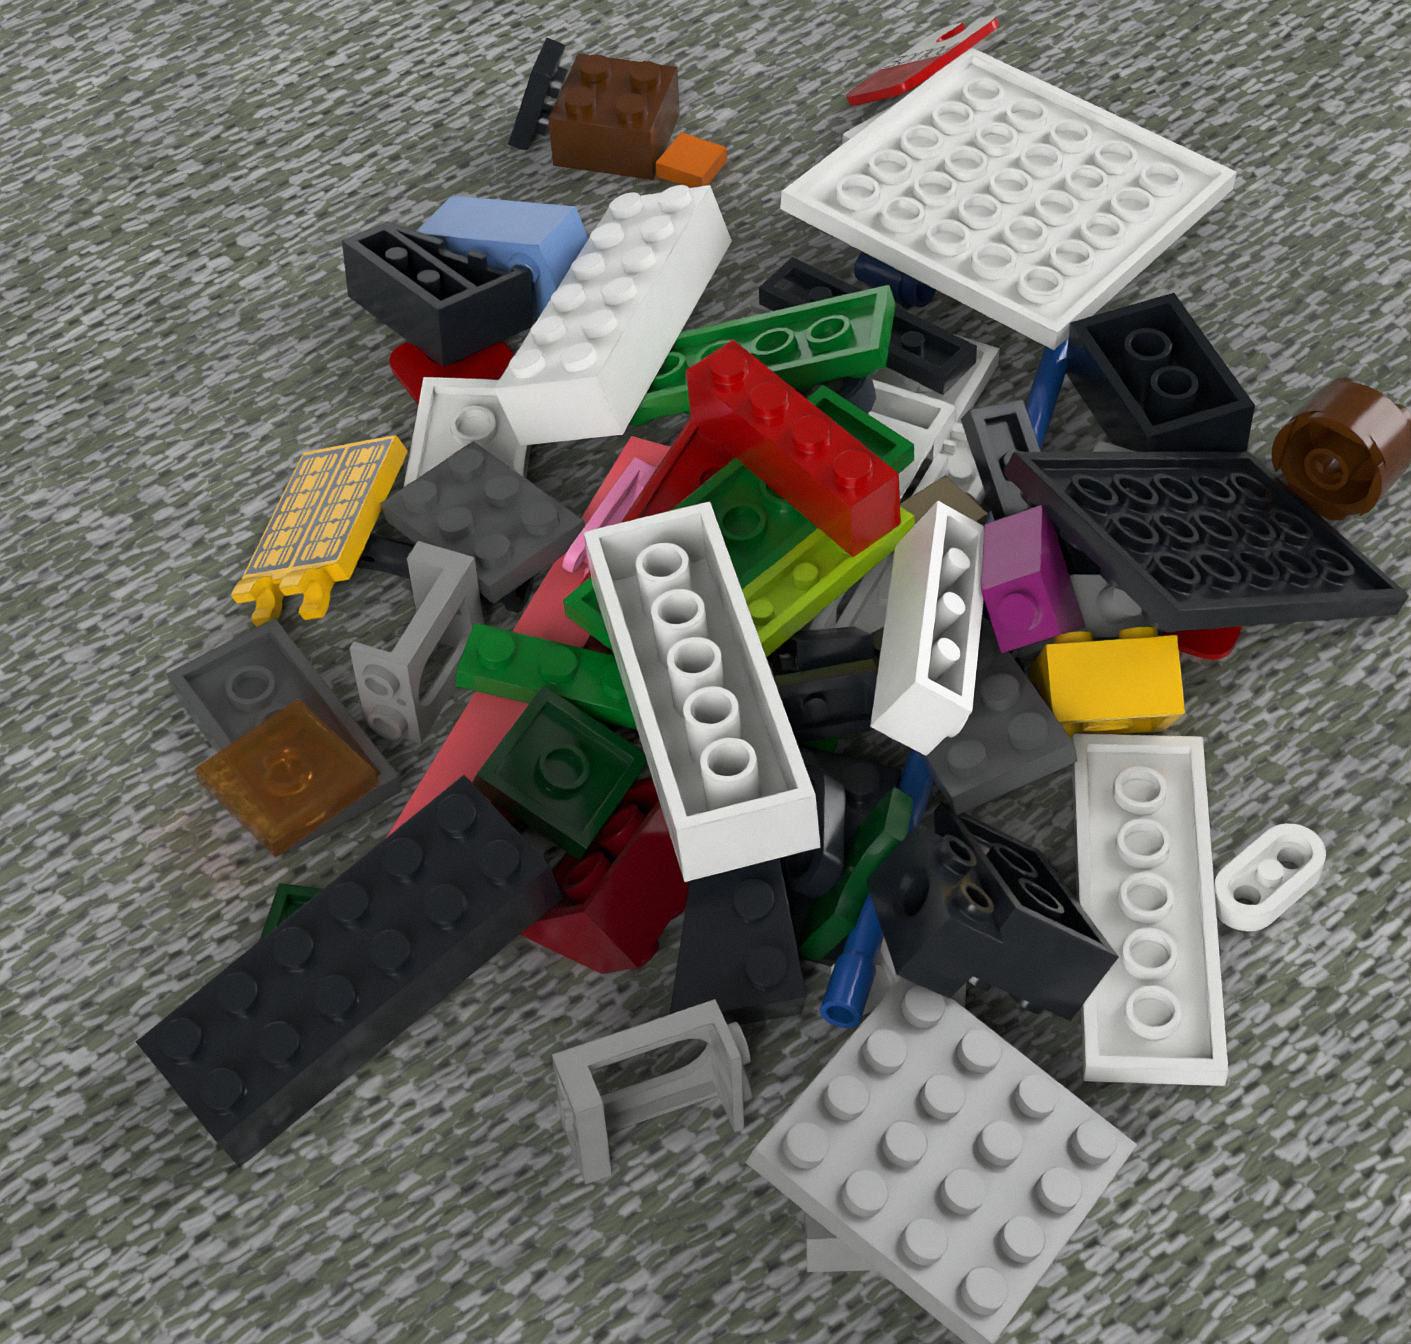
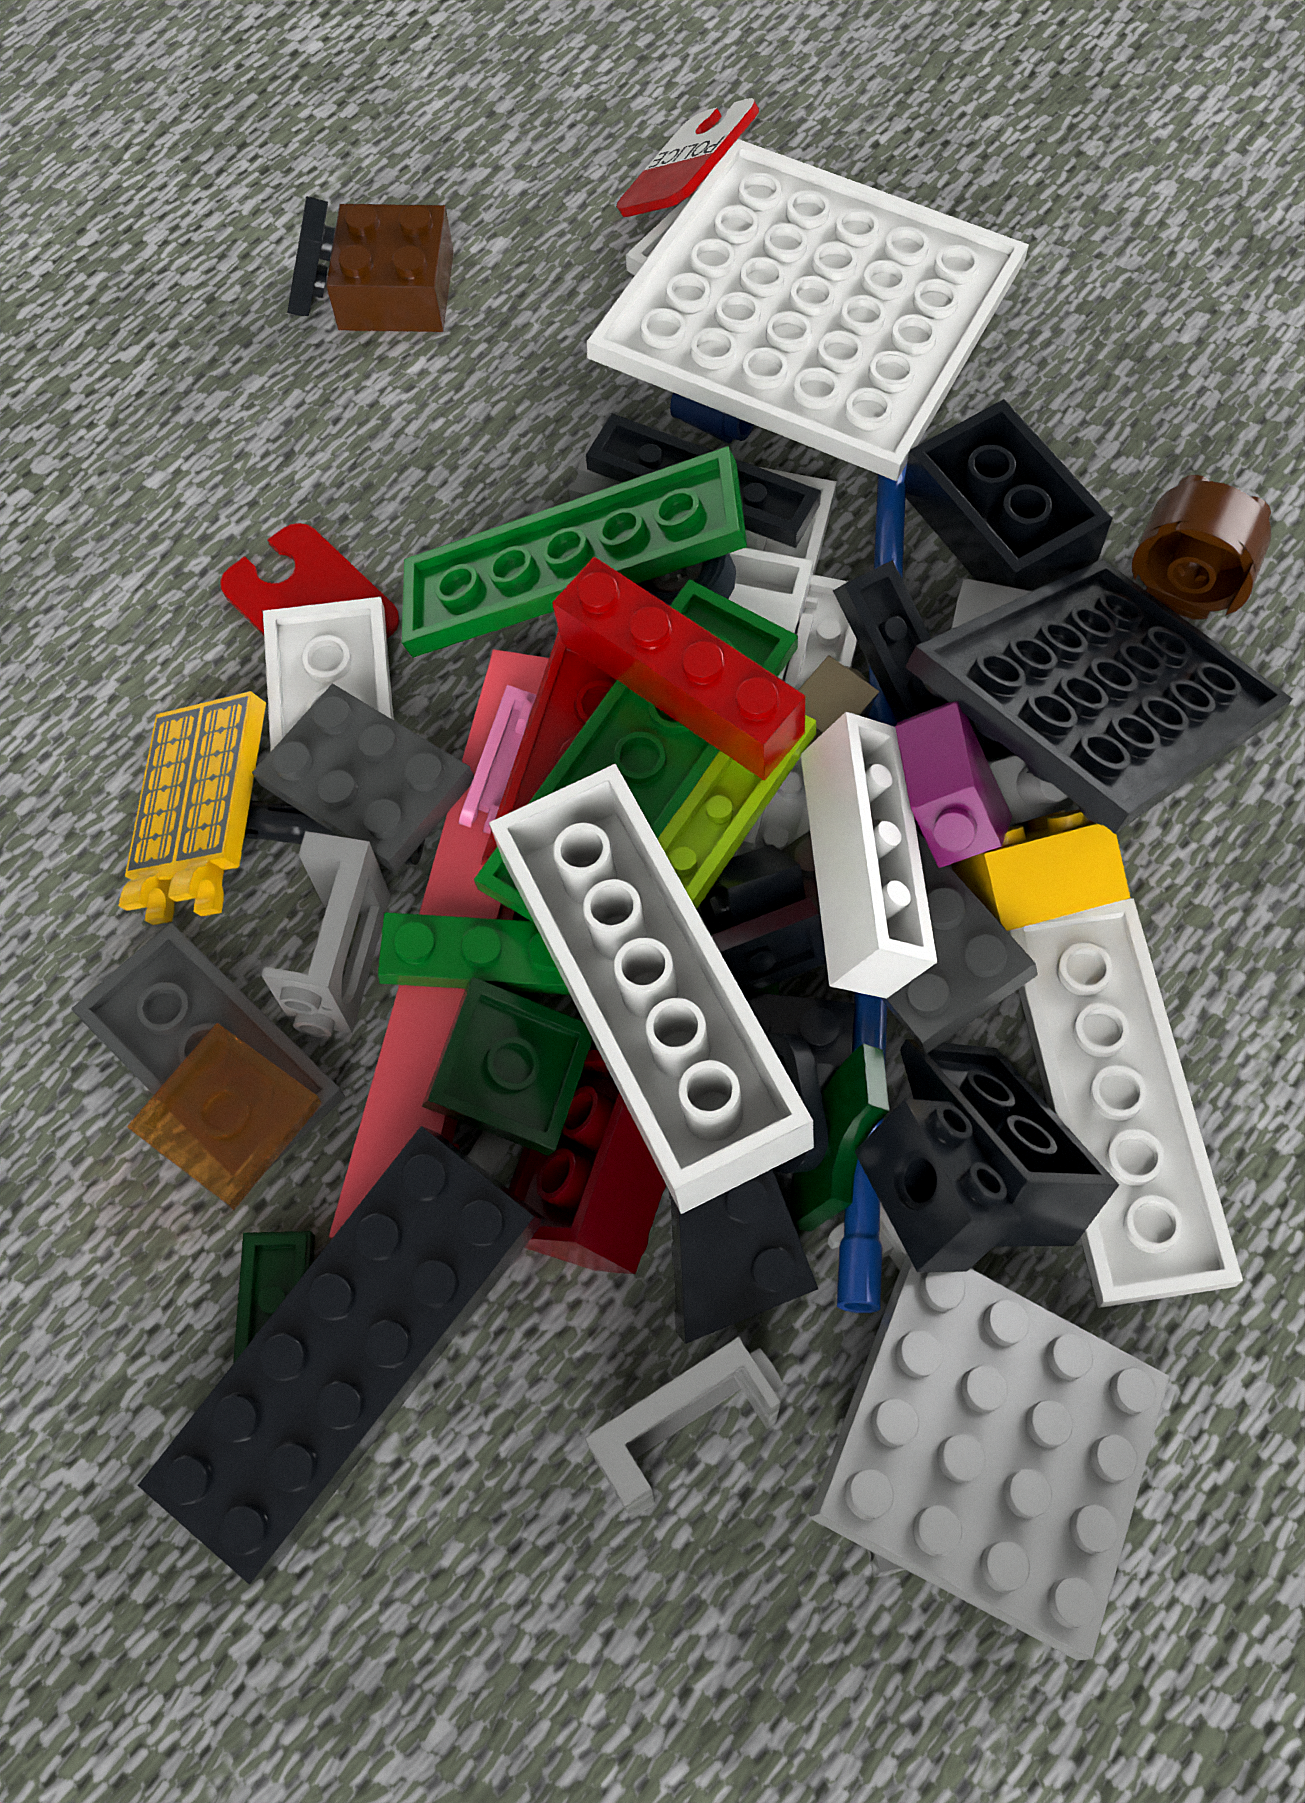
camera: 10 degrees left, 15 degrees up
(433, 296) = (251, 511): black wedge -> none
(512, 234) = (326, 449): medium blue wedge -> none
(614, 317) = (446, 515): white brick -> none
(691, 161) = (478, 306): orange tile -> none
(1263, 879) = (1227, 1048): white plate -> none

